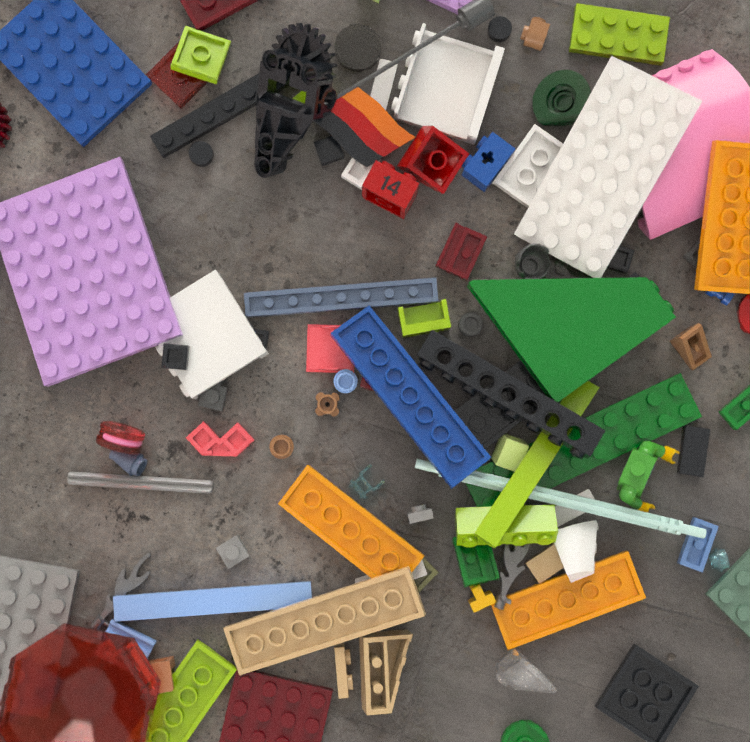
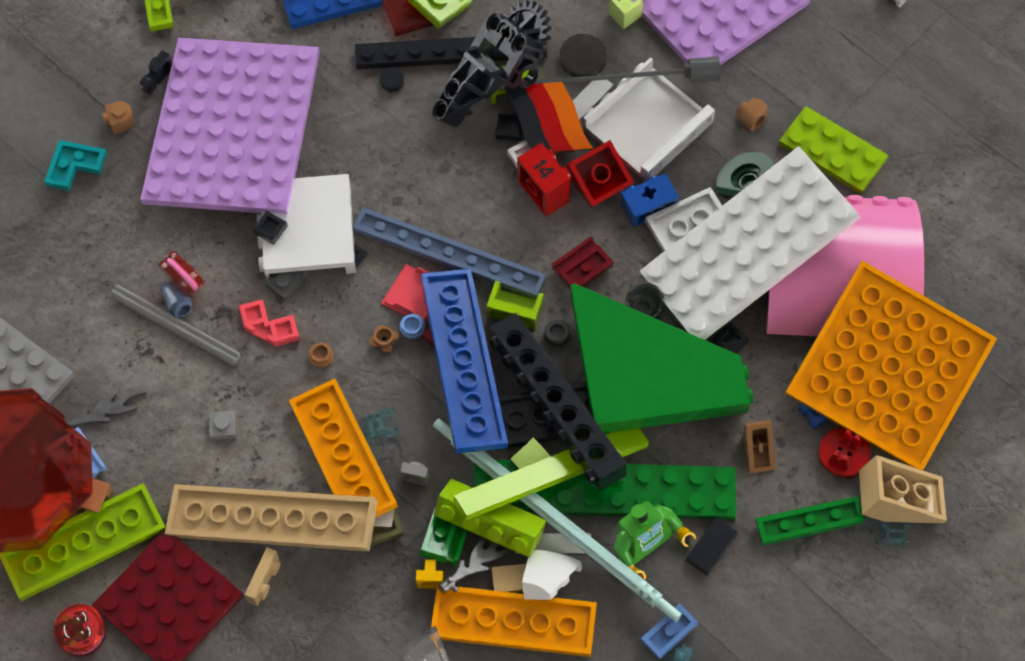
camera: 30 degrees right, 20 degrees down
(209, 601) = (170, 453): light blue tile -> none
(381, 667) = (300, 589): tan wedge -> none
(499, 29) = (722, 97): black tile -> none

